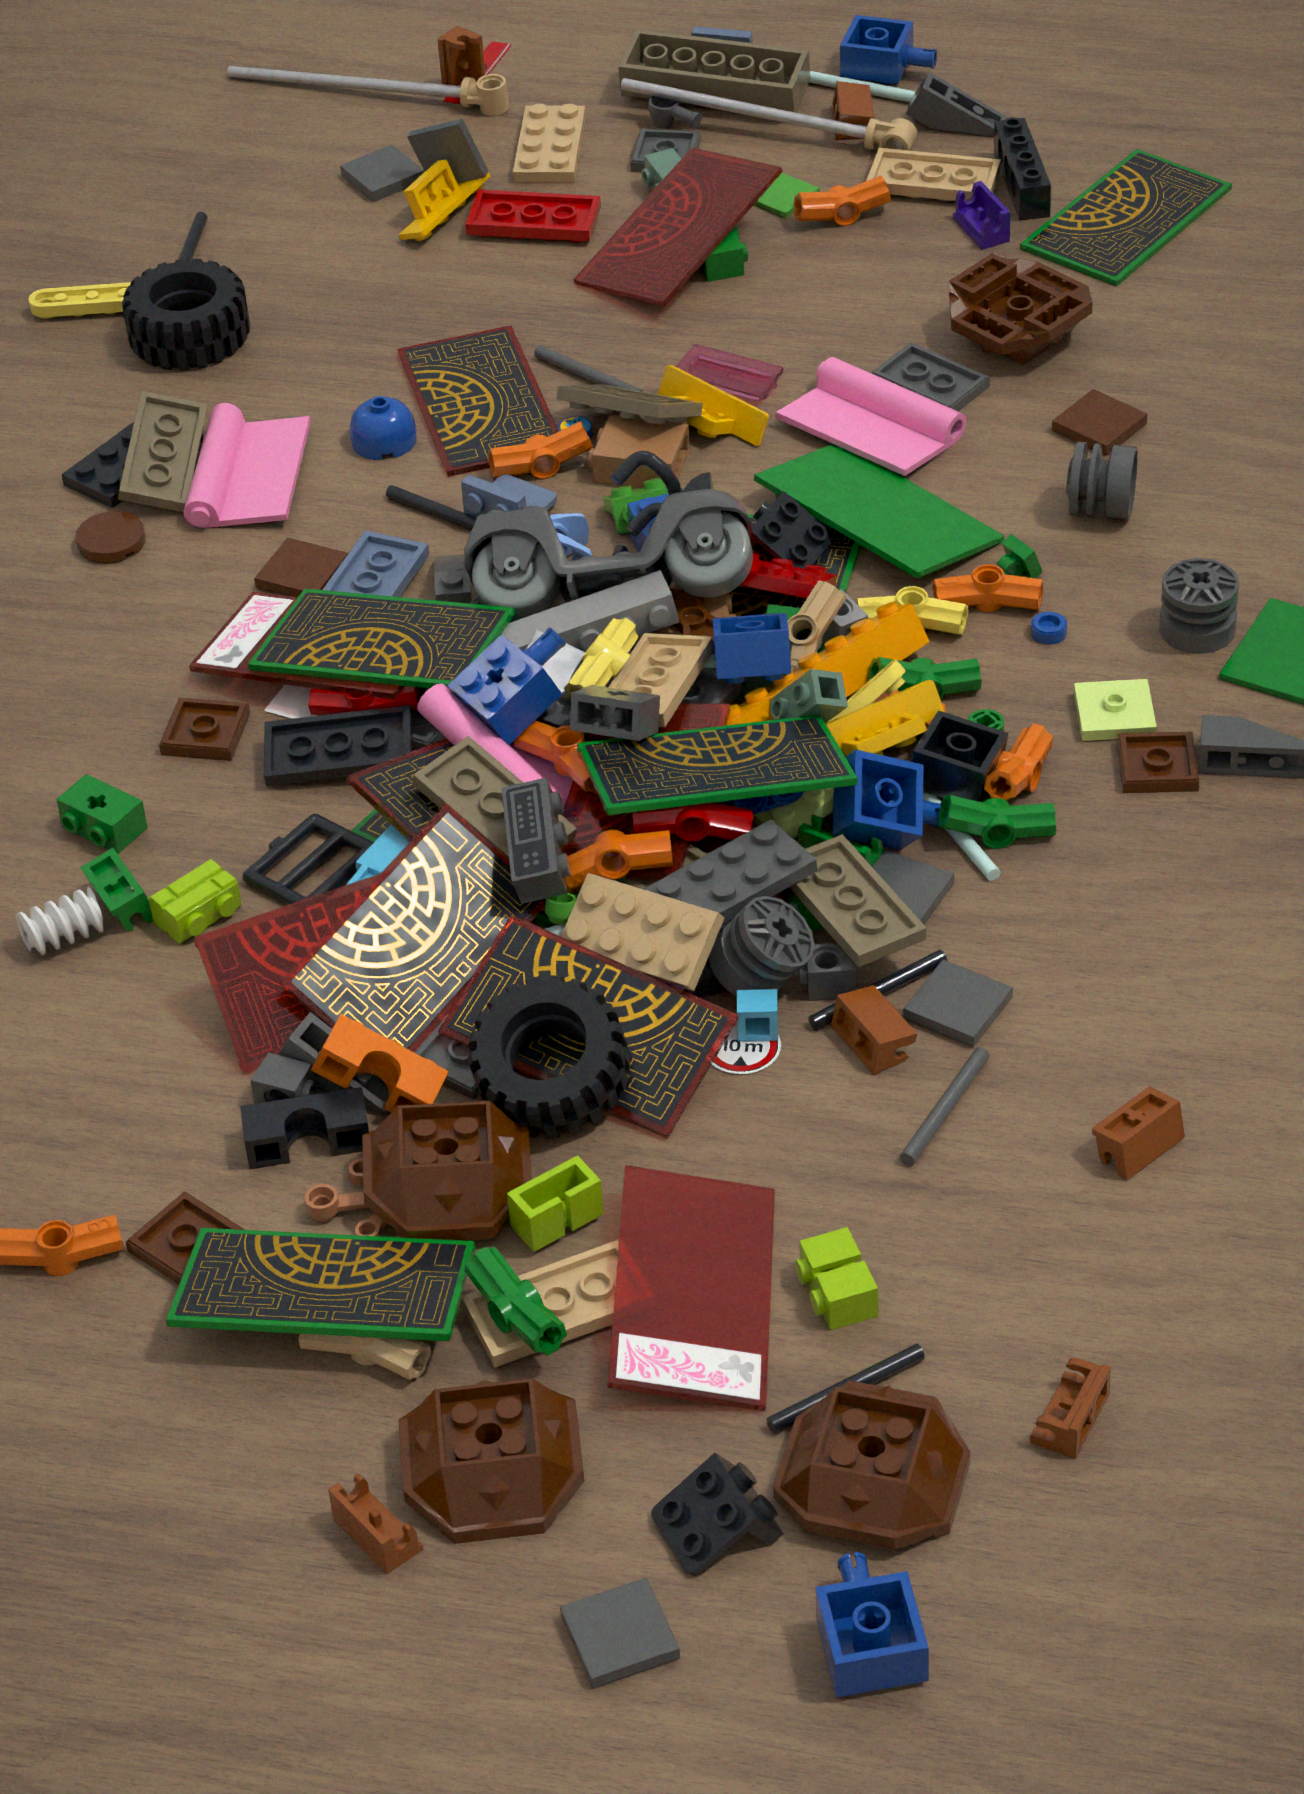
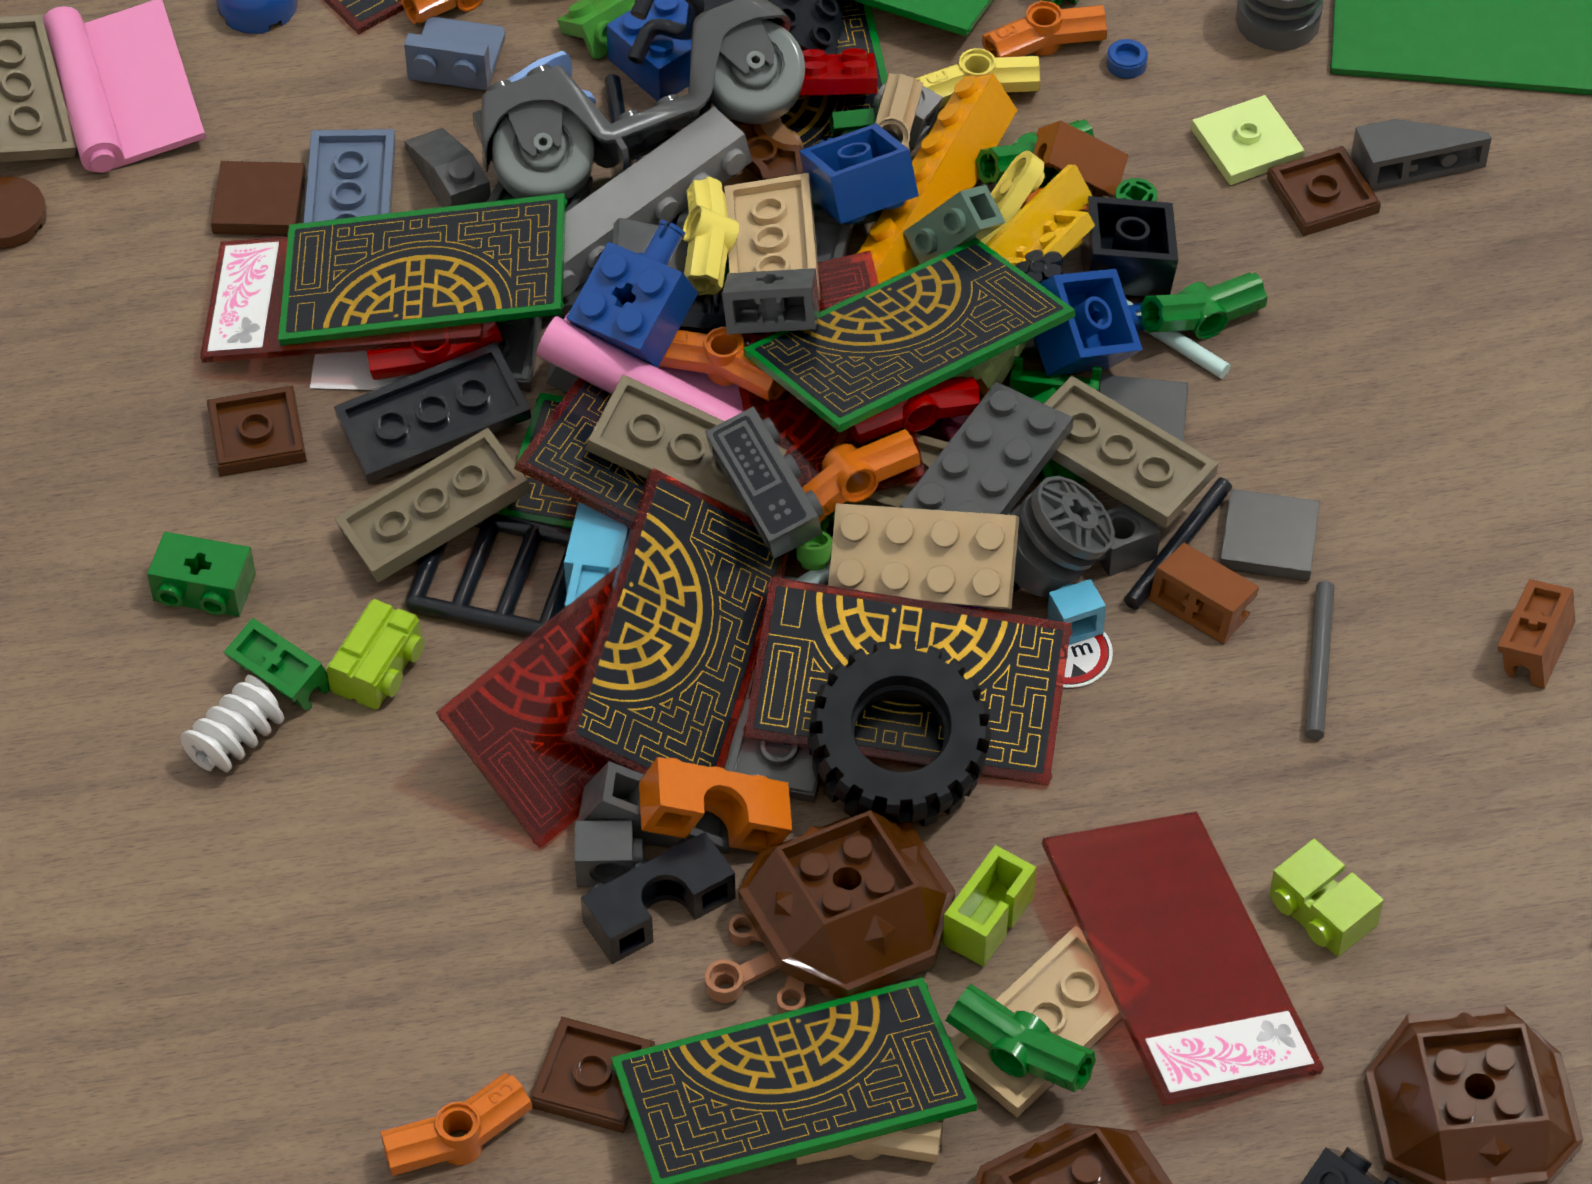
camera: 25 degrees left, 10 degrees up
(292, 809) = (433, 505): none -> dark tan plate
(430, 507) = (384, 82): black bar -> none
(859, 742) = (1041, 266): none -> black plant
(869, 1375) = (1382, 1033): black bar -> none
(954, 682) = (1096, 160): none -> dark orange hinge
(1021, 765) = (1193, 233): orange piece -> none

